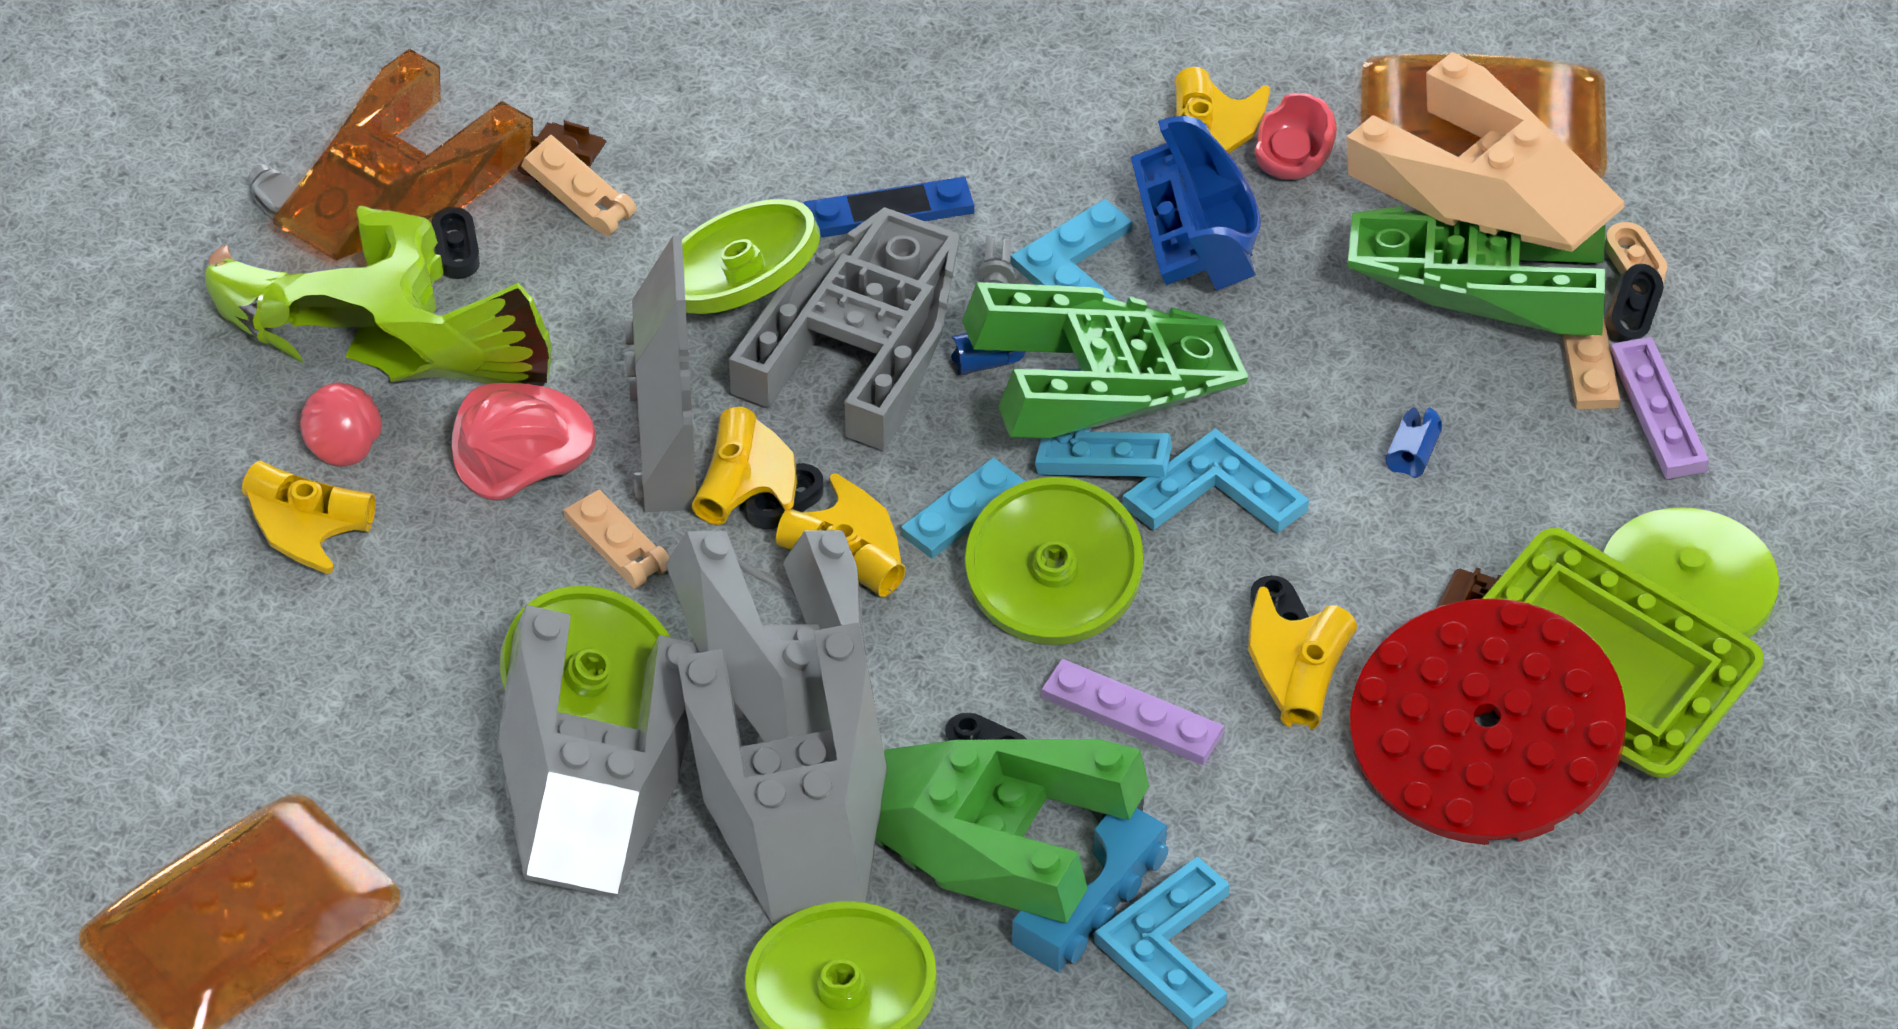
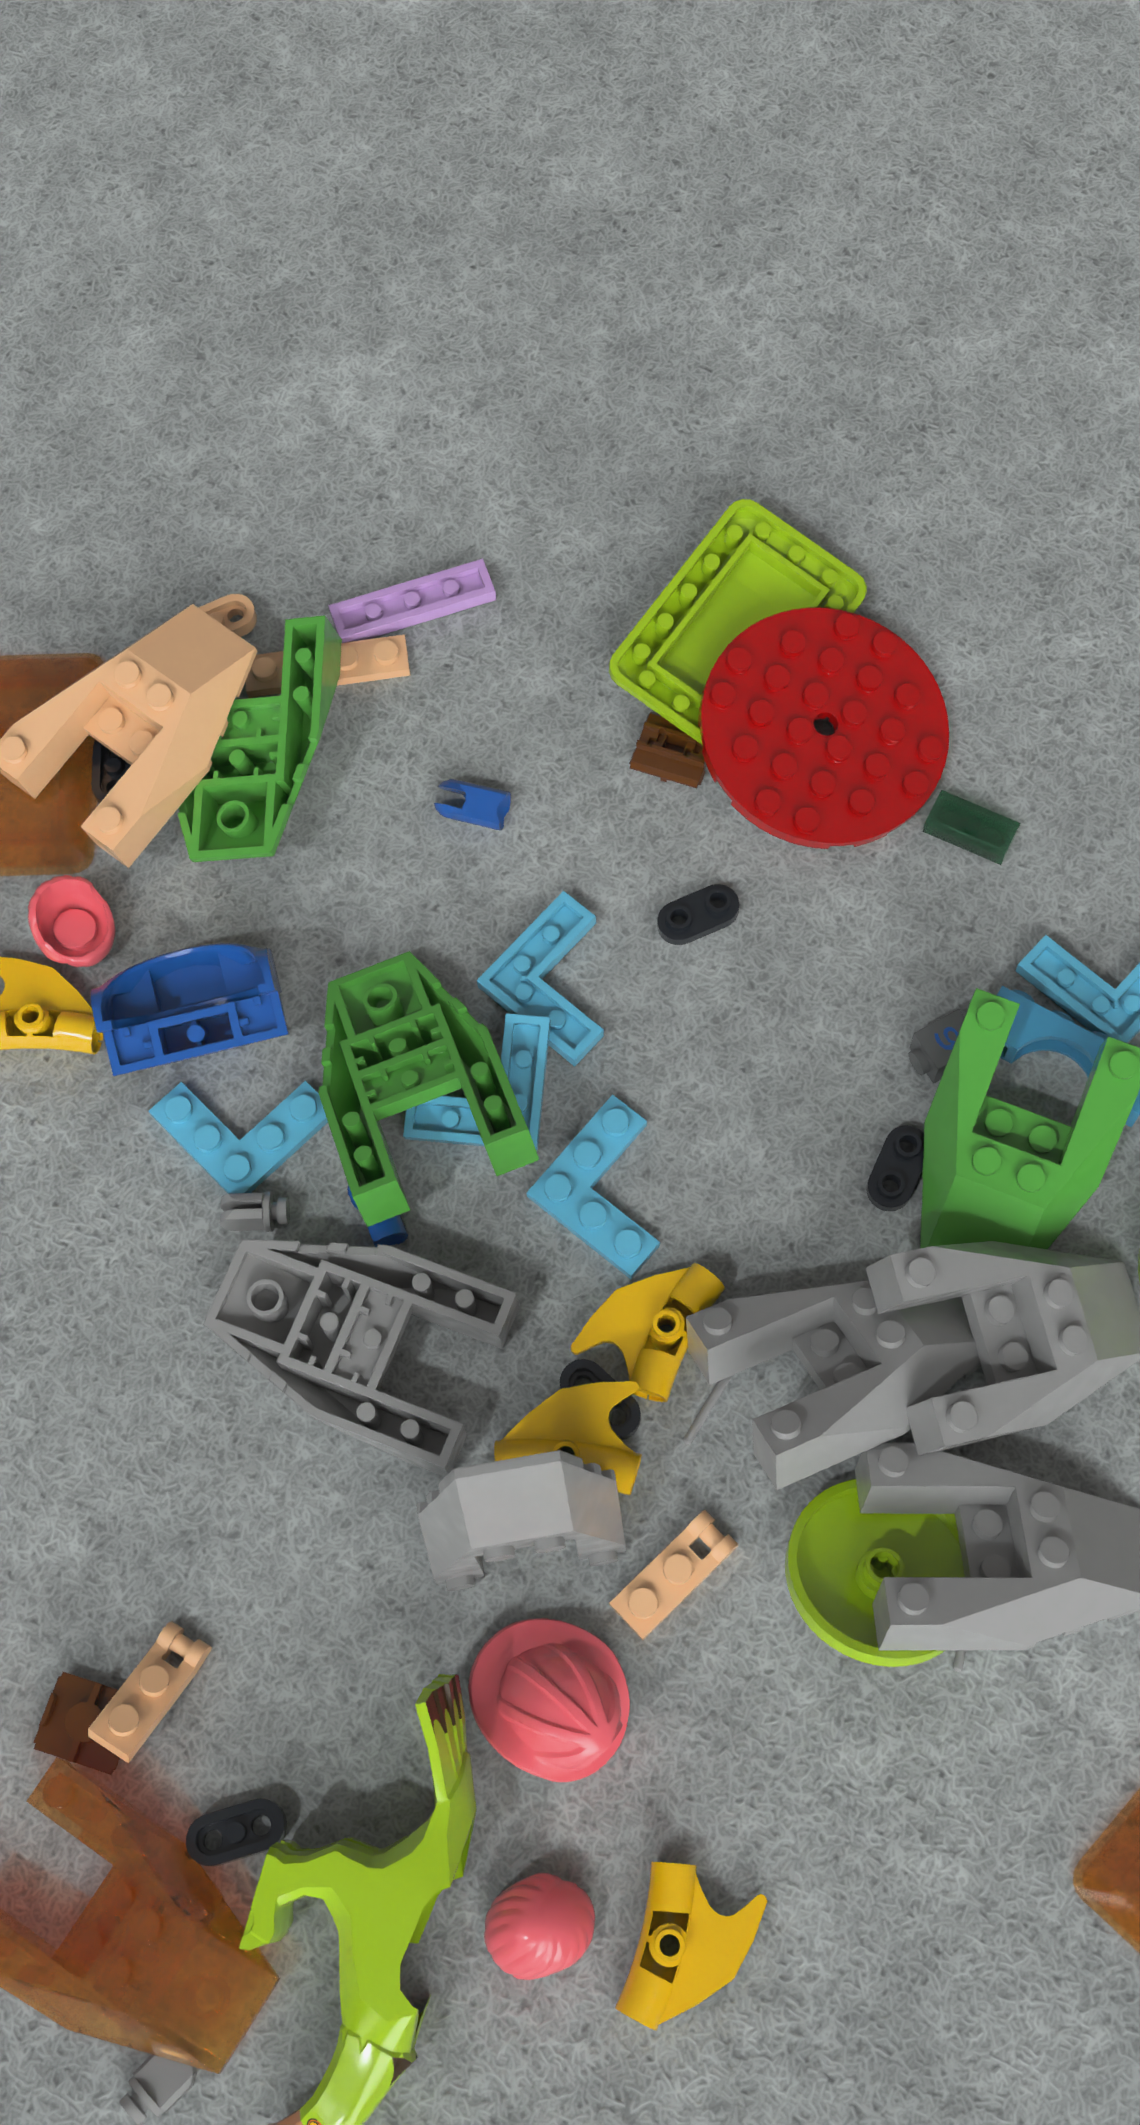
camera: 90 degrees left, 20 degrees up
(746, 254) = (271, 1482): lime dish -> none
(921, 201) = (162, 1338): blue plate -> none
(1054, 560) = (676, 1115): lime dish -> none
(1132, 711) = (838, 1039): lavender plate -> none
(1298, 656) = (764, 890): yellow pin -> none
(1366, 844) = (971, 827): none -> clear green plate
(1633, 307) = (269, 611): black plate -> none
(1704, 562) = (606, 574): lime dish -> none

